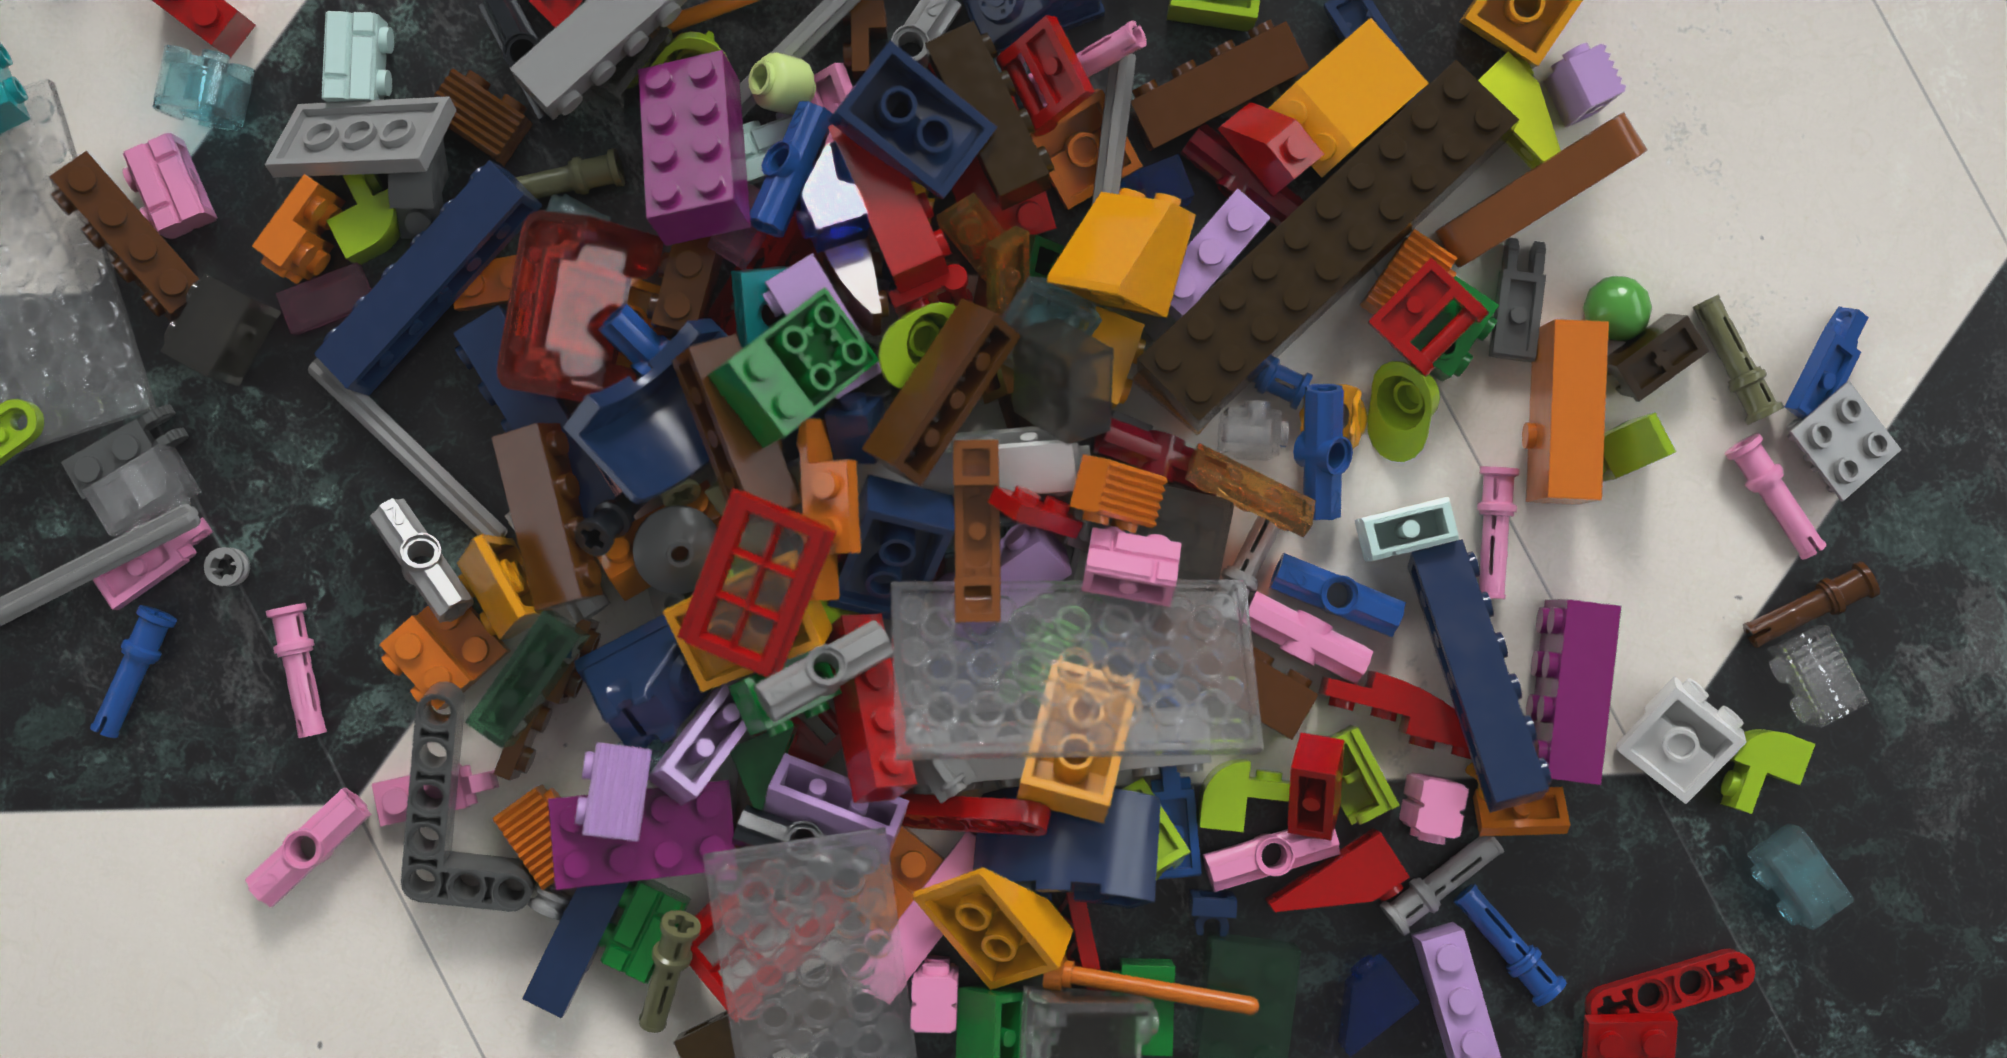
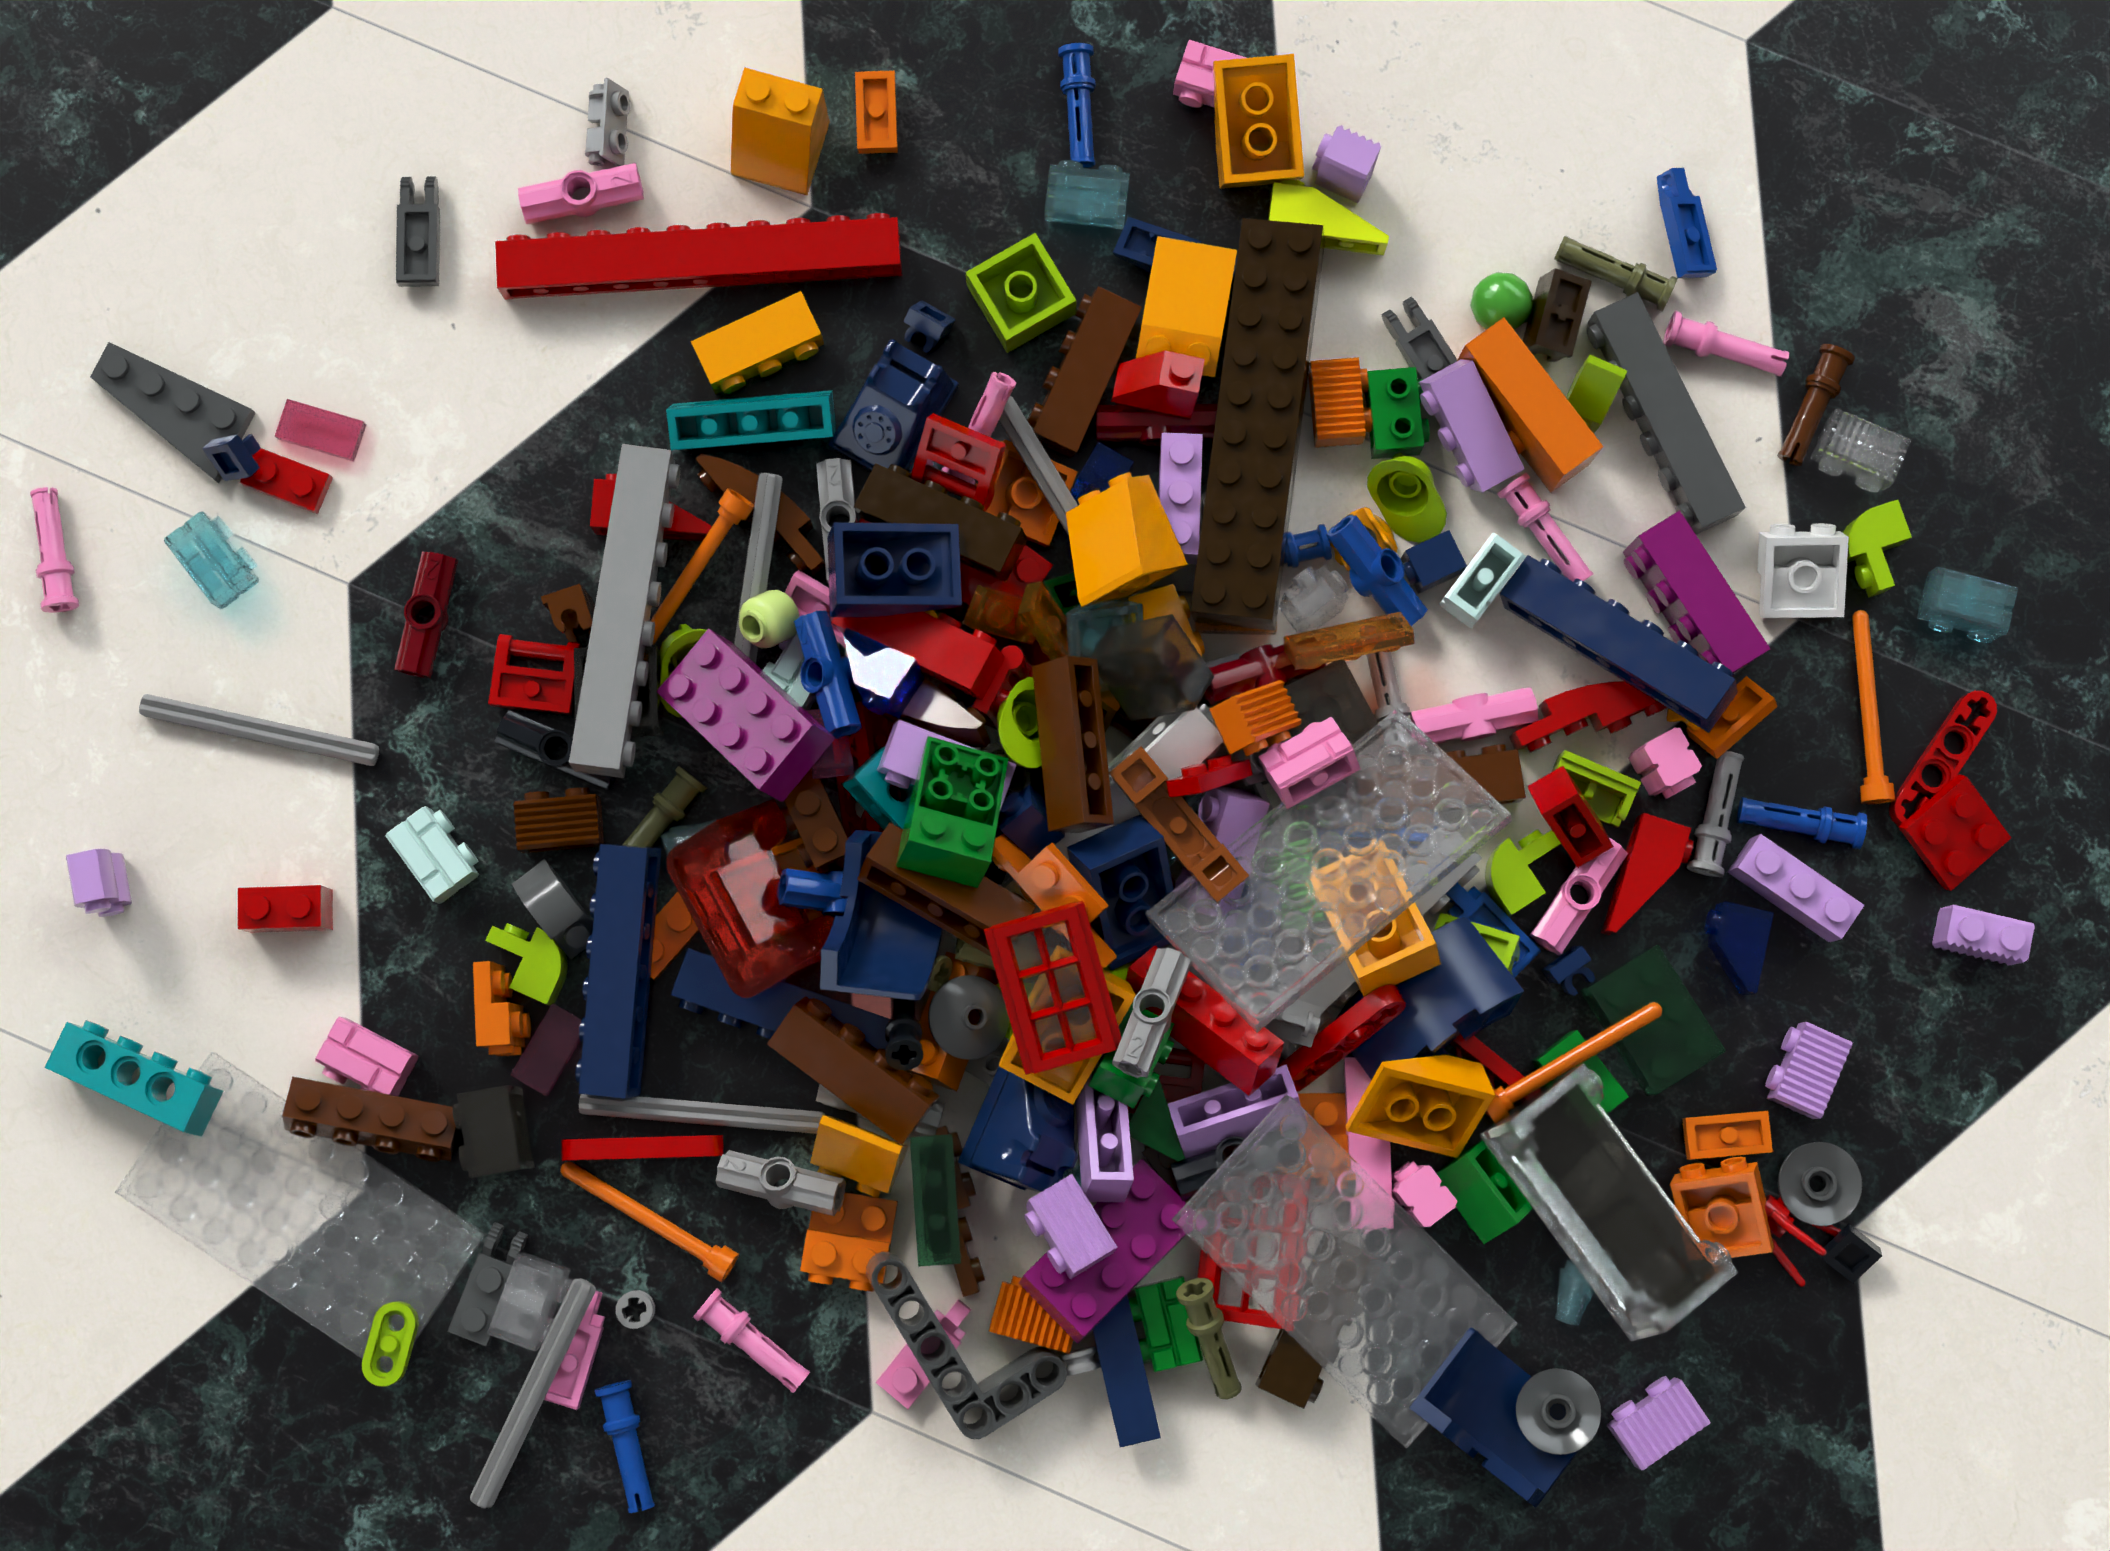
camera: 35 degrees left, 5 degrees down
(203, 88) = (339, 963): clear light blue brick -> none
(289, 863) = (864, 1495): bright pink piece -> none
(322, 580) = (716, 1259): none -> orange piece
(334, 439) = (642, 1147): none -> red beam
(361, 137) = (488, 904): light grey plate -> none
(1363, 604) = (1495, 659): blue piece -> none
(1377, 480) = (1432, 562): none -> dark blue brick
(1417, 306) = (1359, 415): red plate -> none
(1503, 391) = (1470, 426): none -> lavender brick
(1542, 189) = (1378, 262): dark orange beam -> none
(1596, 964) = (1876, 784): none -> orange piece
(1677, 513) = (1665, 414): none -> dark grey brick
(1843, 441) = (1739, 269): light grey hinge -> none

